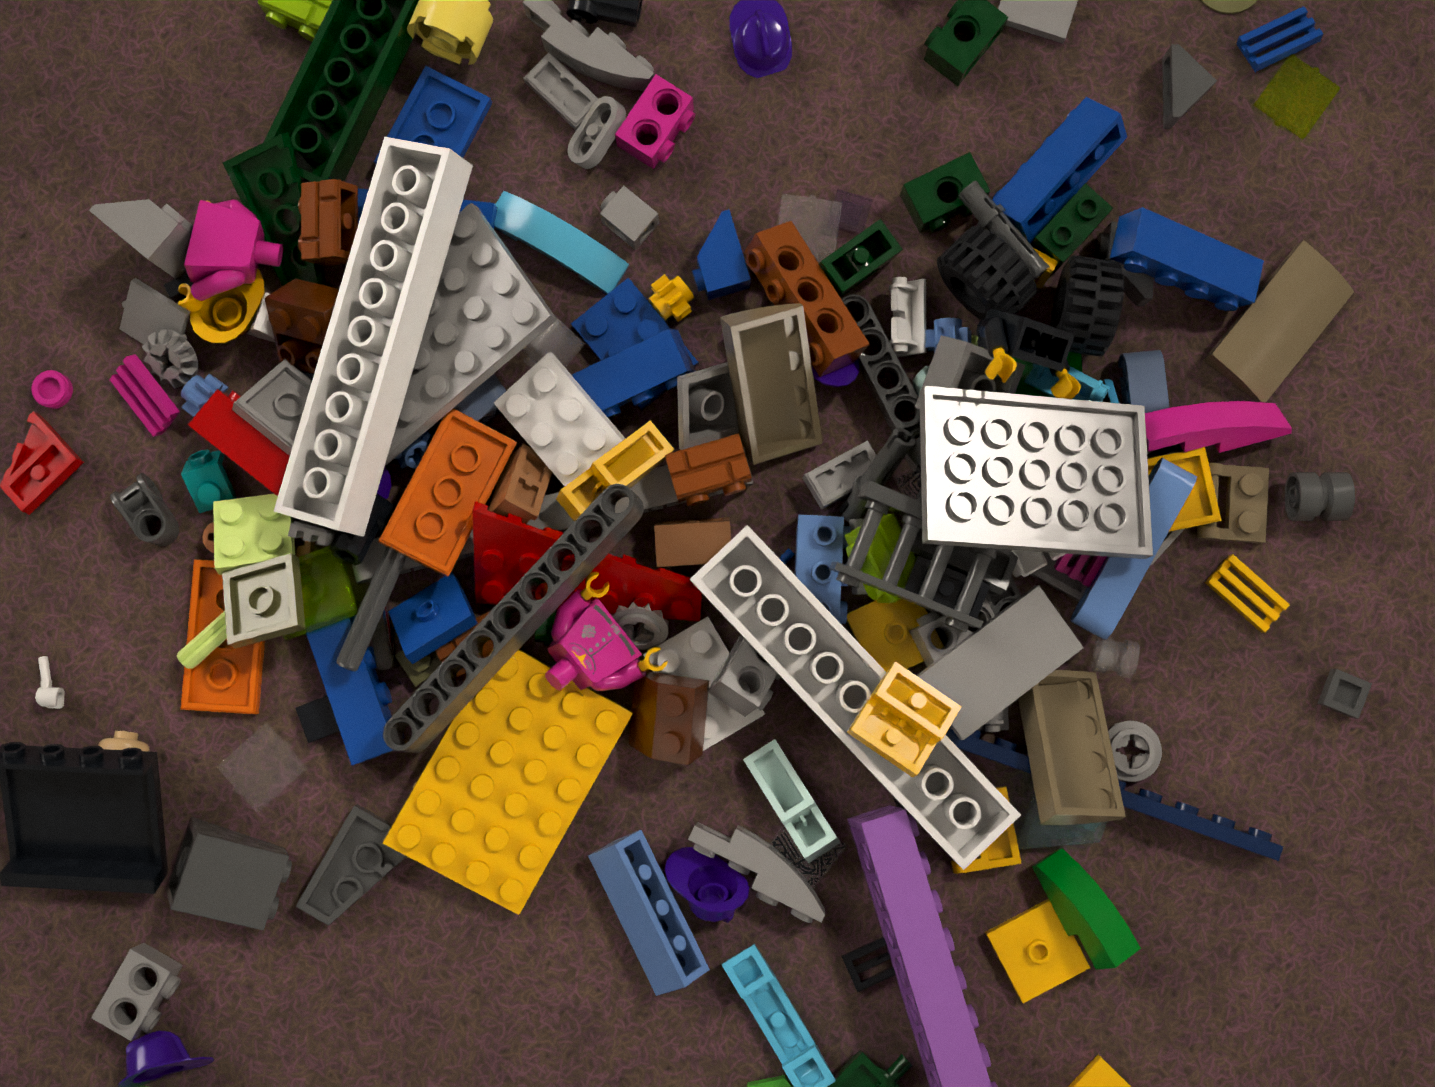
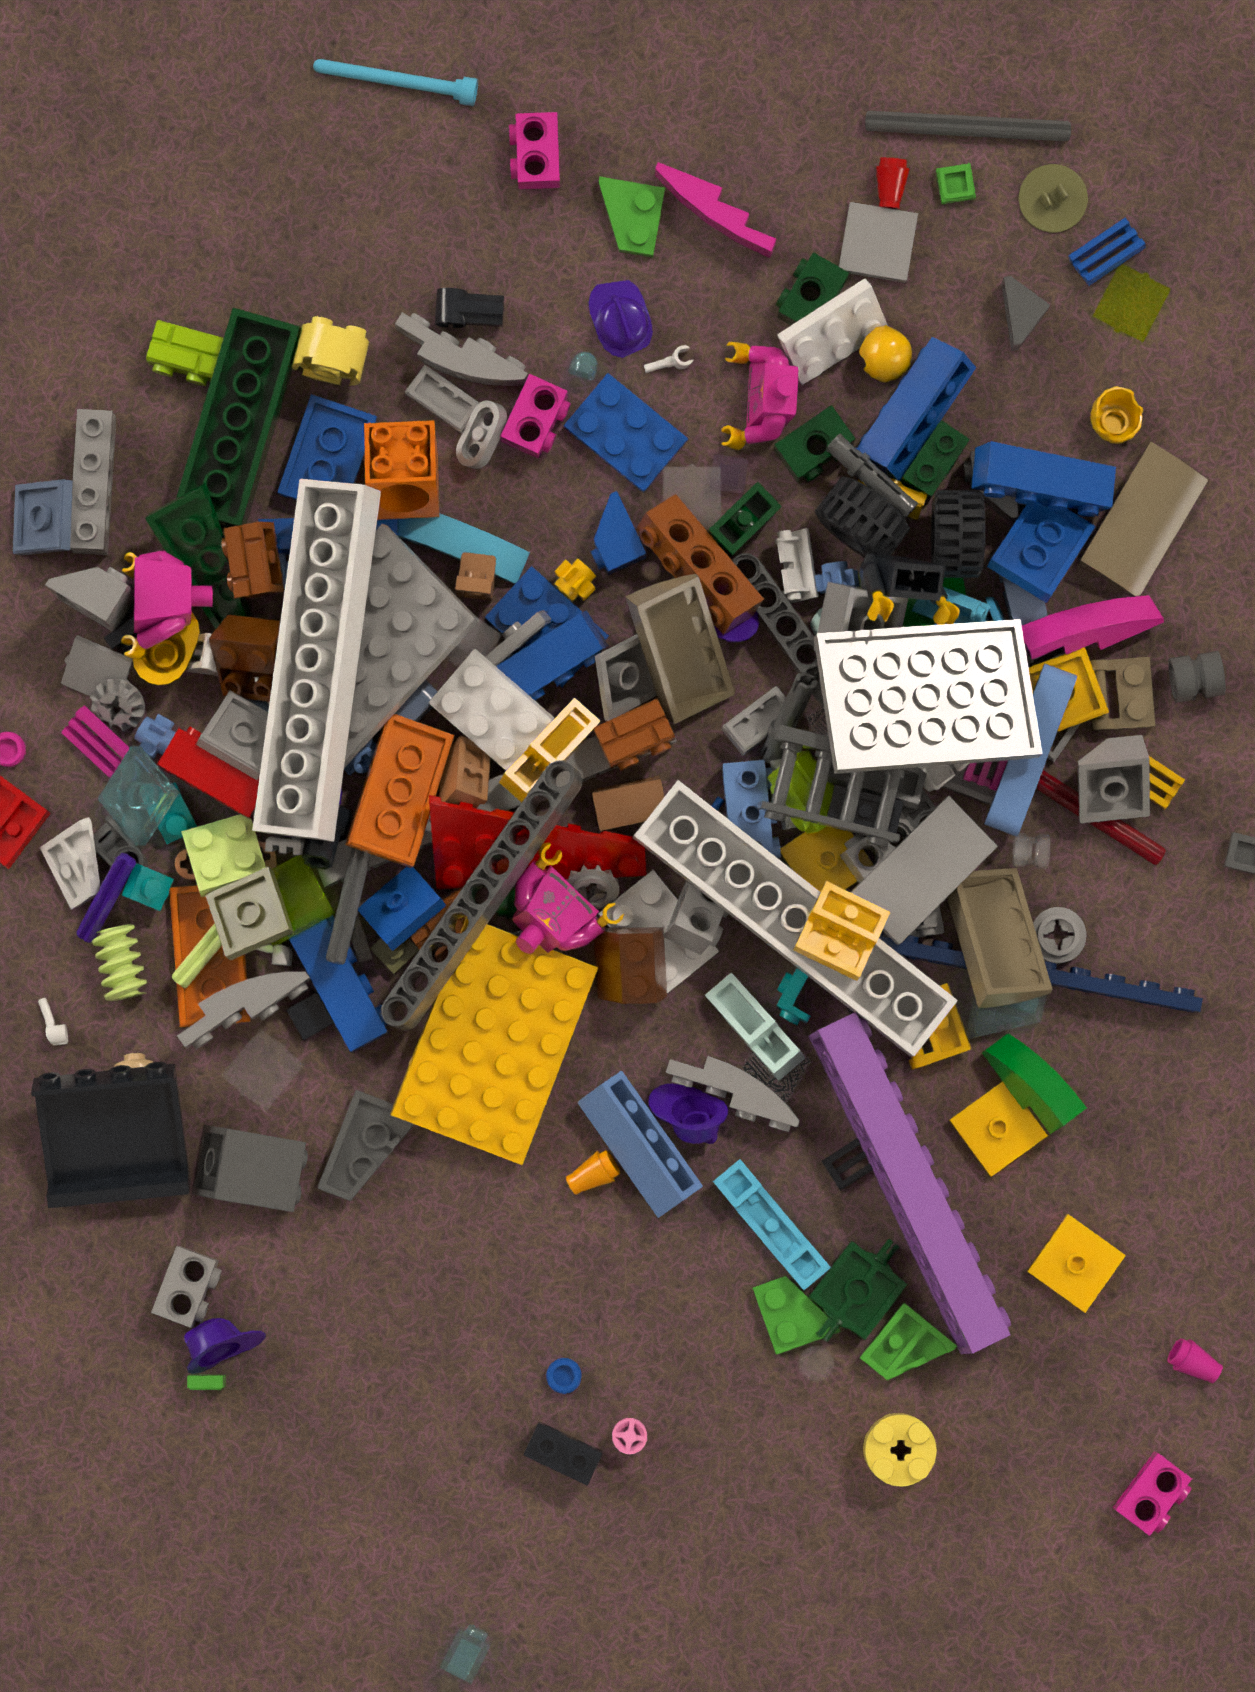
camera: 15 degrees left, 0 degrees up
(95, 518) = (74, 863): none -> white wing
(120, 559) = (106, 897): none -> dark purple axle
(123, 151) = (42, 517): none -> sand blue tile
(125, 631) = (119, 963): none -> yellowish green piece
(165, 555) = (147, 887): none -> teal bracket
(171, 457) = (138, 795): none -> clear light blue plate
(182, 123) = (92, 481): none -> light grey brick
(257, 690) = (255, 995): none -> light grey slope
(299, 648) = (281, 954): none -> white hand
(507, 150) = (404, 467): none -> orange brick
(566, 279) = (476, 576): none -> medium nougat slope
(596, 933) = (594, 1172): none -> light orange cone
(601, 346) = (517, 636): none -> light grey plate
(628, 217) = (523, 509): light grey brick -> none
(714, 78) = (583, 366): none -> clear light blue hinge
(748, 154) = (625, 432): none -> blue plate
(807, 87) = (670, 361): none -> white hand
(836, 766) = (790, 989): none -> teal bracket
(906, 133) = (770, 394): none -> dark pink torso
(982, 75) = (832, 331): none -> white plate
(1034, 109) = (886, 354): none -> yellow hair
(1172, 335) = (1041, 548): none -> blue plate
(1196, 635) = (1114, 828): none -> dark red axle
(1221, 595) = (1114, 781): none -> light grey slope
(1274, 197) = (1121, 403): none -> yellow hair

